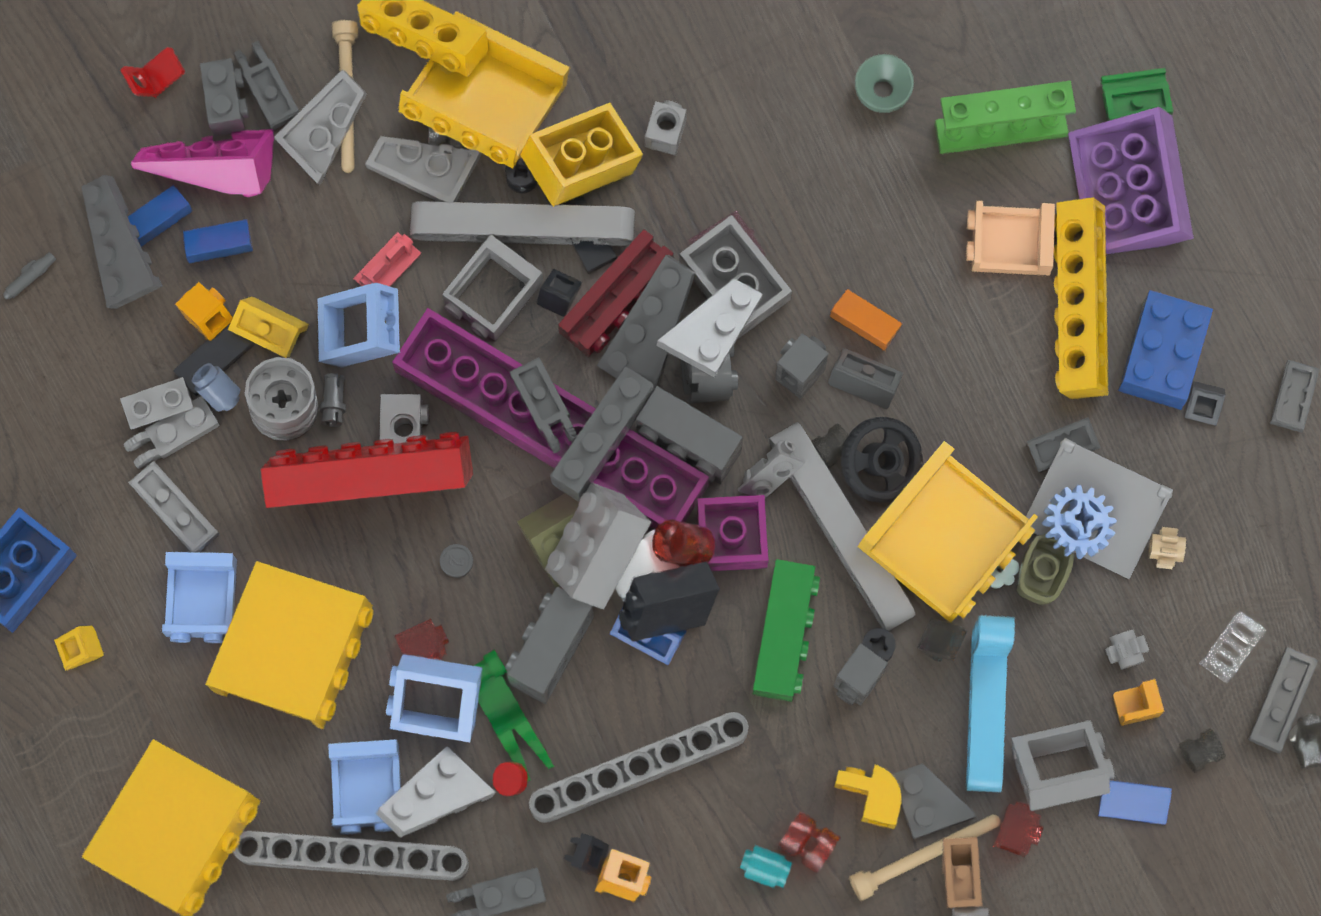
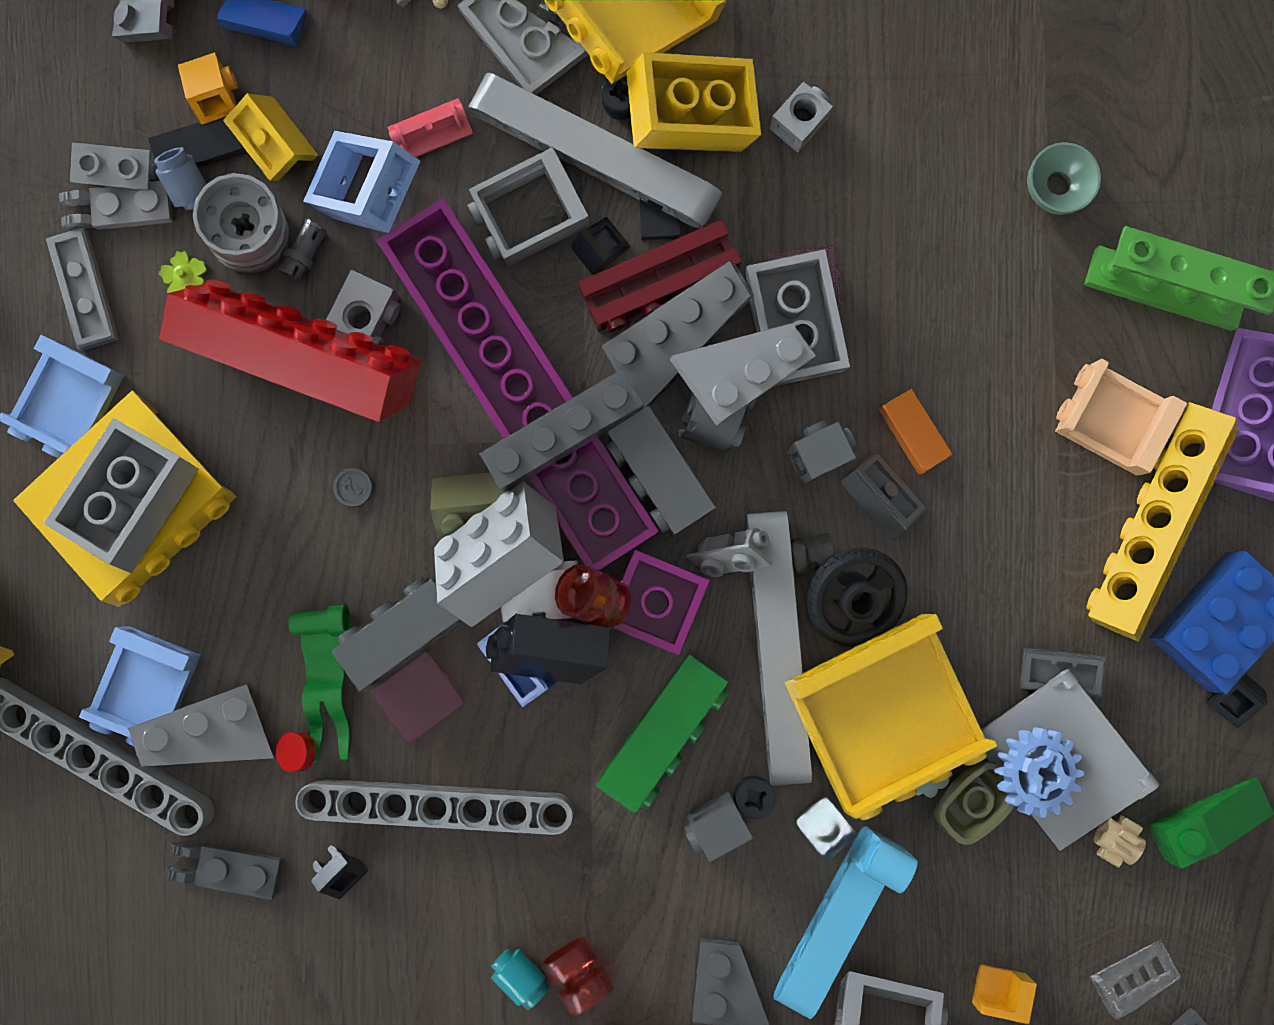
camera: 25 degrees right, 10 degrees up
(247, 461) = (184, 272): none -> lime plant
(297, 631) = (121, 496): none -> light grey brick
(423, 641) = (270, 563): clear red brick -> none
(438, 673) = (262, 611): light blue window -> none
(542, 401) = (516, 362): dark grey hinge -> none
(583, 696) = (417, 697): none -> clear pink piece
(626, 866) = (380, 921): light orange brick -> none
(882, 794) = (680, 960): yellow brick -> none
(1127, 649) = (1021, 931): light grey gear -> none
(1230, 502) = (1210, 823): none -> green slope

